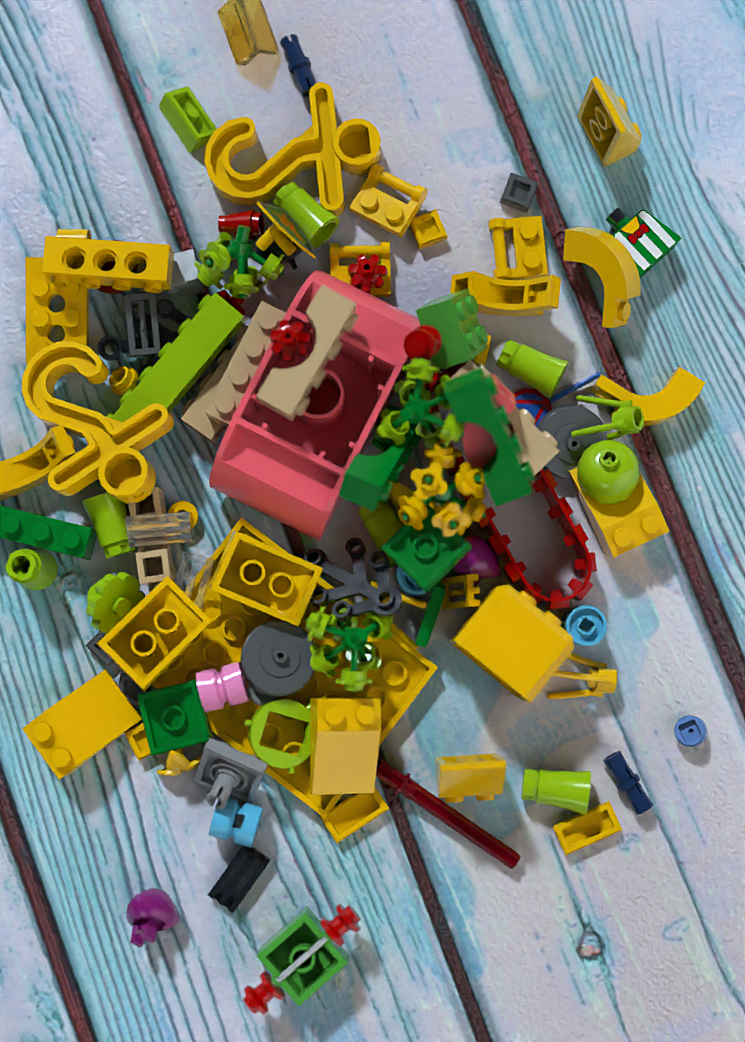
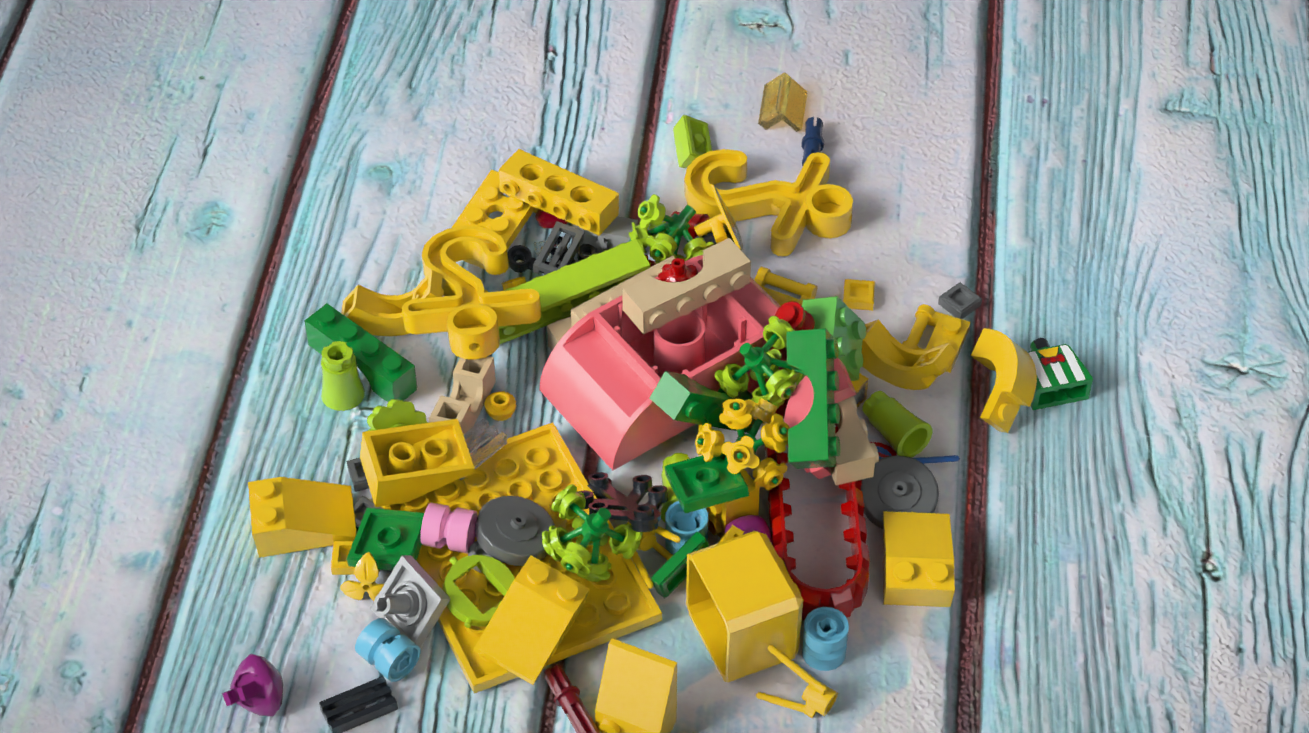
camera: 30 degrees right, 35 degrees down
(109, 522) = (433, 375): lime plant -> none
(158, 529) = (445, 390): clear tile -> none
(265, 578) = (540, 456): yellow slope -> none
(309, 215) = (756, 239): lime plant -> none
(354, 813) = (505, 703): yellow tile -> none
(367, 277) = (783, 291): red plant -> none
(384, 209) = (828, 264): yellow plate -> none
(607, 123) = (1070, 272): yellow slope -> none
(608, 471) = (919, 514): lime cylinder -> none
(626, 420) = (956, 481): lime plant -> none
(659, 407) = (995, 501): yellow arch -> none

